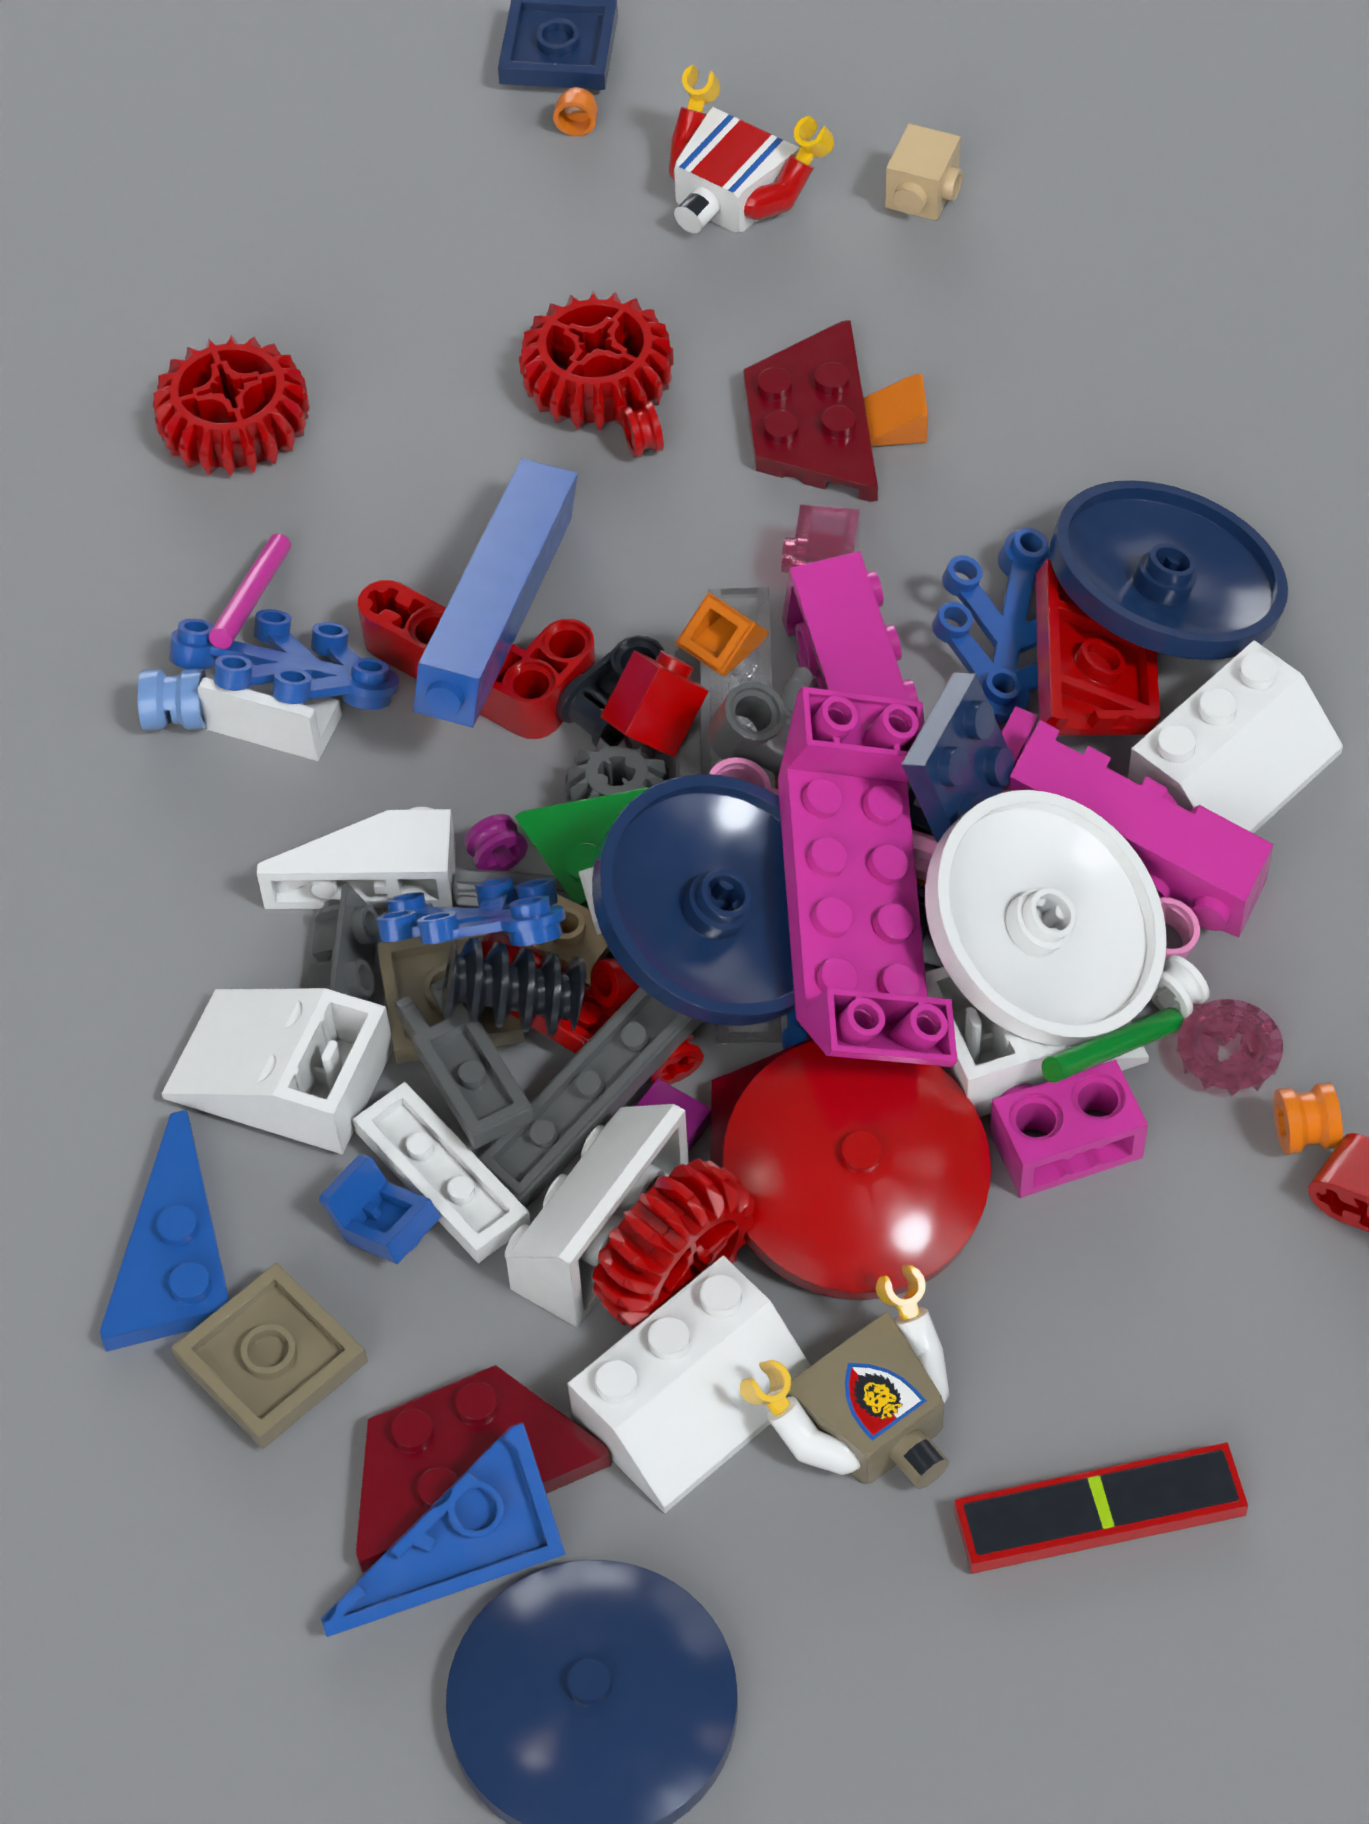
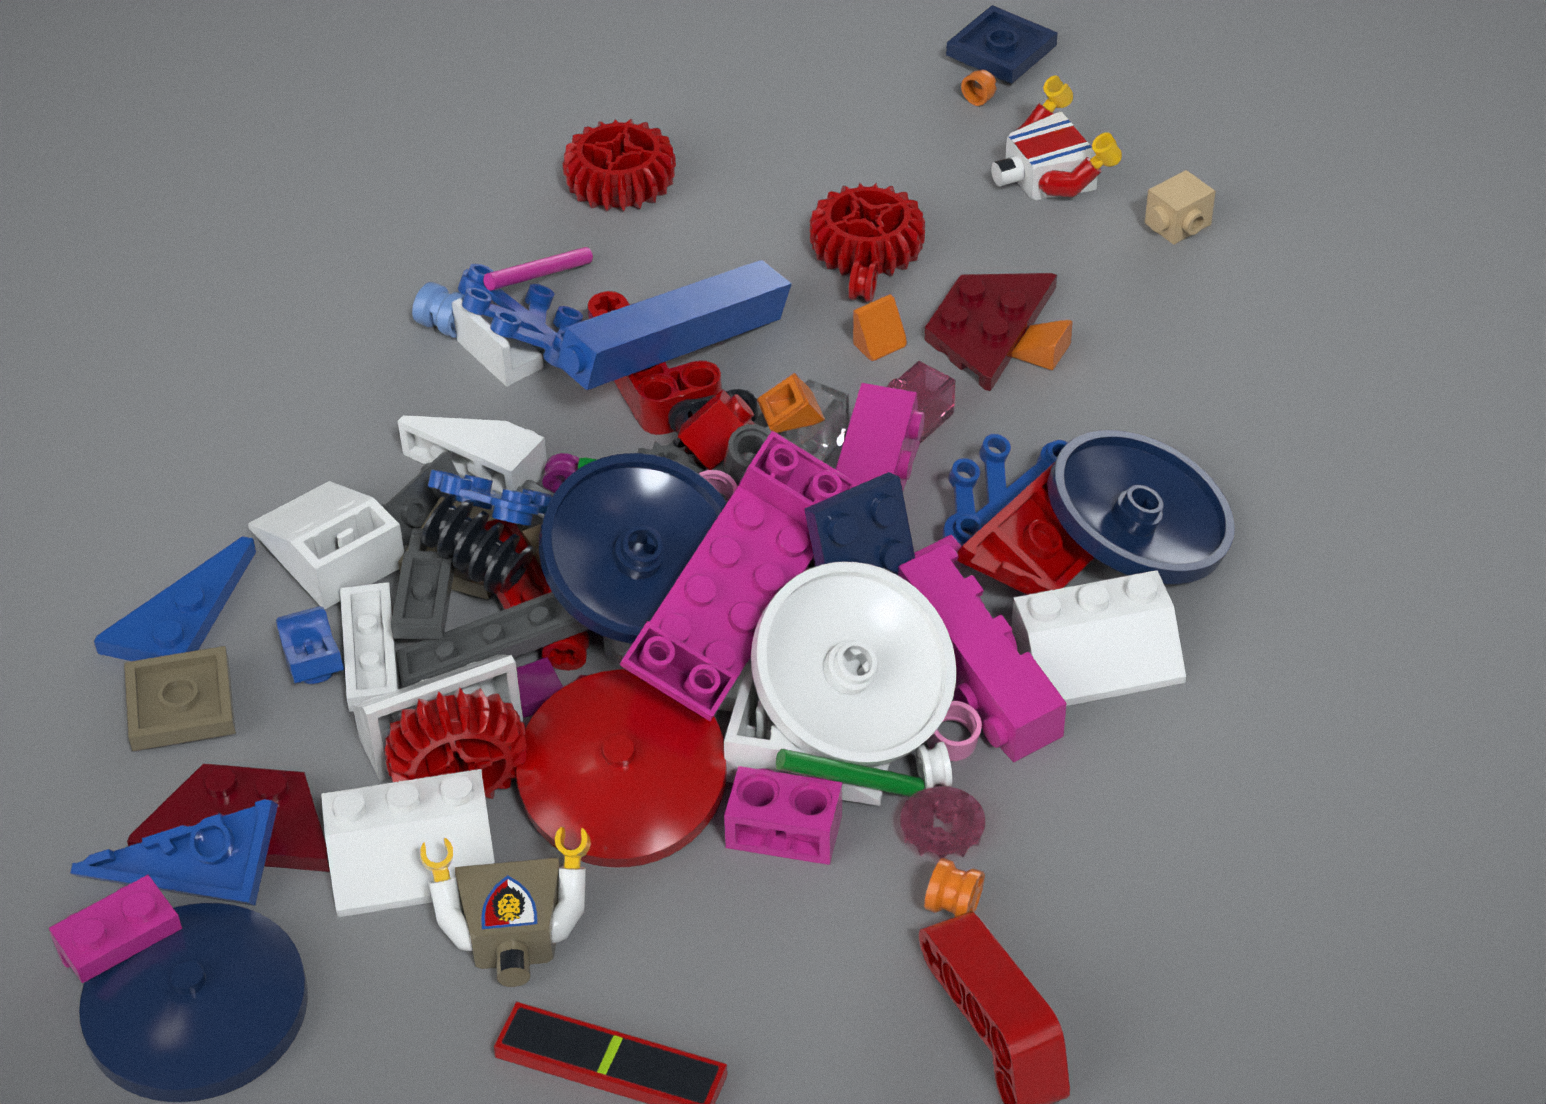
camera: 30 degrees right, 10 degrees down
(451, 1674) = (114, 928): none -> dark pink bracket
(705, 483) = (878, 328): none -> orange slope

